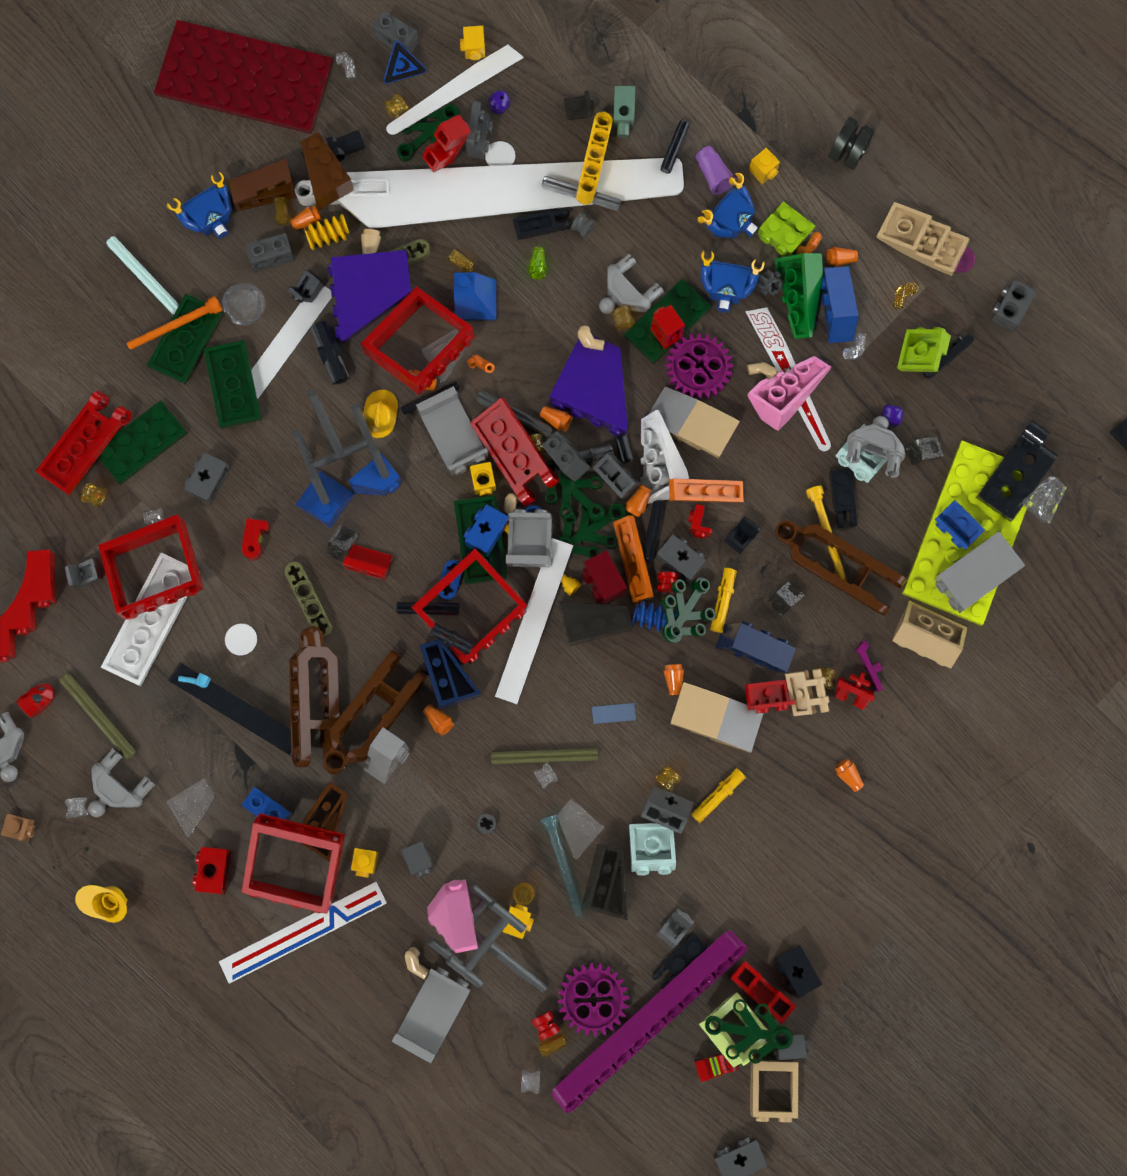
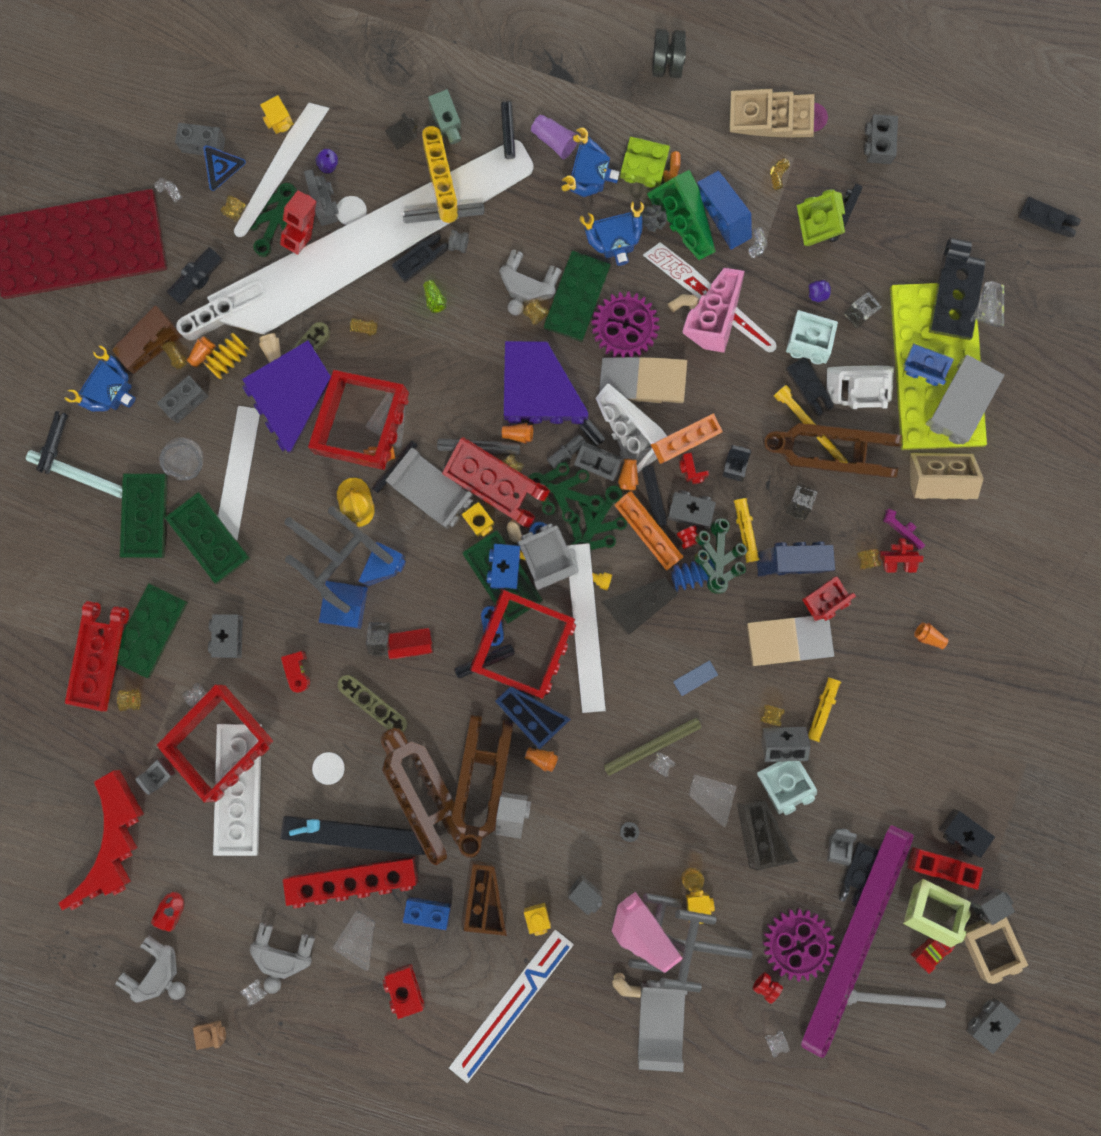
camera: 20 degrees left, 5 degrees up
(97, 716) = (232, 900): olive axle -> none
(102, 902) = (320, 1068): yellow piece -> none
(130, 244) = (54, 435): none -> black pin
(159, 729) = (294, 884): none -> red brick
(211, 306) = (153, 475): orange piece -> none
(300, 833) = (470, 926): red window -> none
(306, 288) = (232, 416): black bracket -> none
(325, 172) = (197, 300): reddish brown wedge -> none
(330, 352) = (282, 467): black piece -> none
(465, 645) = (516, 682): black pin -> none
(474, 296) = (391, 354): blue slope -> none
(481, 363) = (426, 413): orange arm -> none
(550, 825) = (687, 806): clear light blue piece -> none
(551, 1045) = (781, 1002): clear yellow pin -> none
(565, 456) = (545, 465): dark grey brick -> none
(587, 339) = (515, 348): tan arm -> none
(603, 578) = (632, 562): dark red brick -> none
(623, 1073) = (895, 999): none -> light grey piece
(667, 326) = (581, 302): red brick -> none
(674, 678) = (735, 621): orange cone -> none
(752, 1032) = (958, 913): dark green plant -> none
(764, 166) = (598, 111): yellow brick -> none
(800, 690) = (855, 582): tan plate -> none
(840, 256) = (704, 165): orange cone -> none
(878, 441) = (821, 321): light grey connector -> none
(891, 517) = (867, 385): none -> white piece

